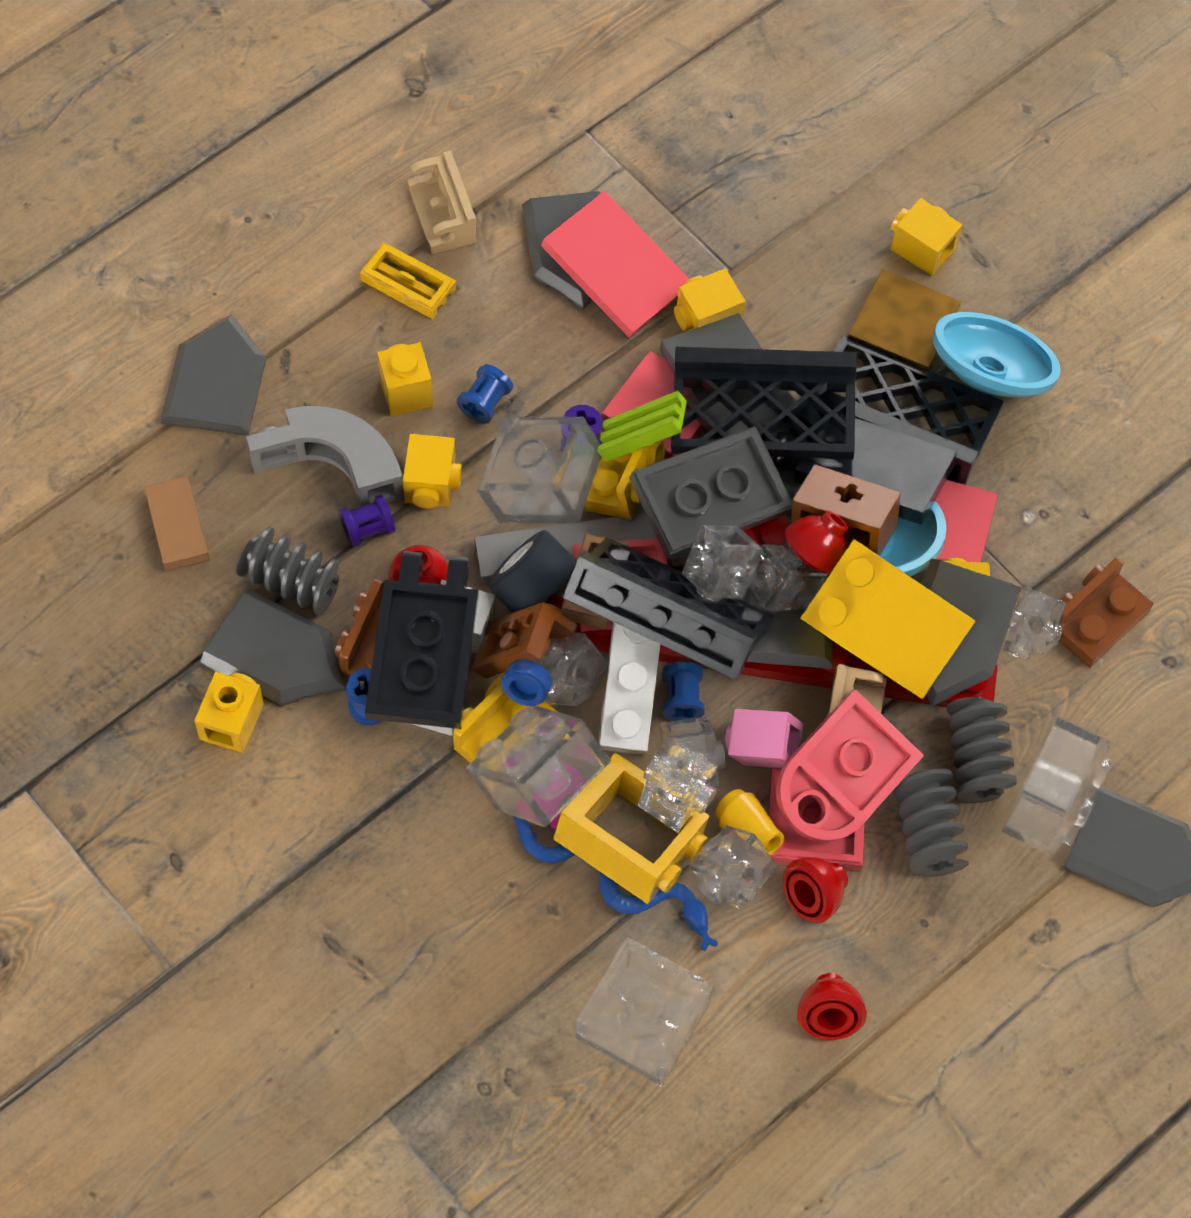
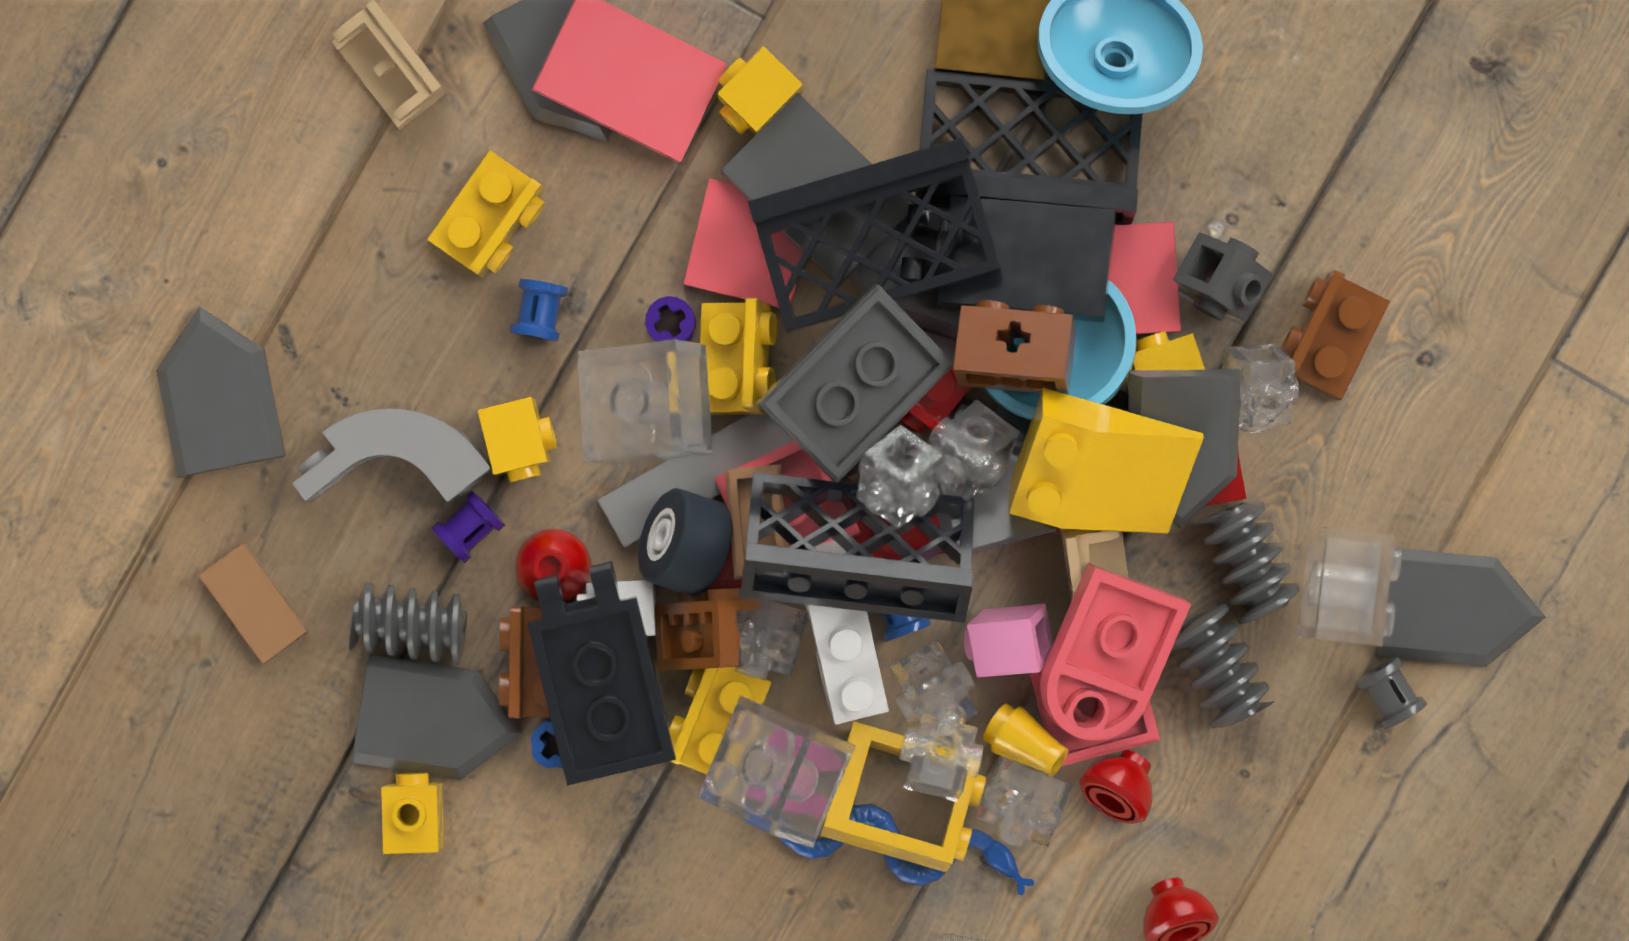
camera: 10 degrees left, 25 degrees up
(403, 285) = (433, 191): yellow tile -> none
(405, 378) = (439, 327): yellow brick -> none
(473, 324) = (488, 215): none -> yellow bracket
(526, 682) = (730, 685): blue tile -> none
(642, 426) = (735, 298): lime tile -> none
(818, 540) = (997, 412): red brick -> none
(1025, 536) = (1223, 277): none -> dark grey brick
(1069, 892) = (1391, 693): none -> dark grey bush

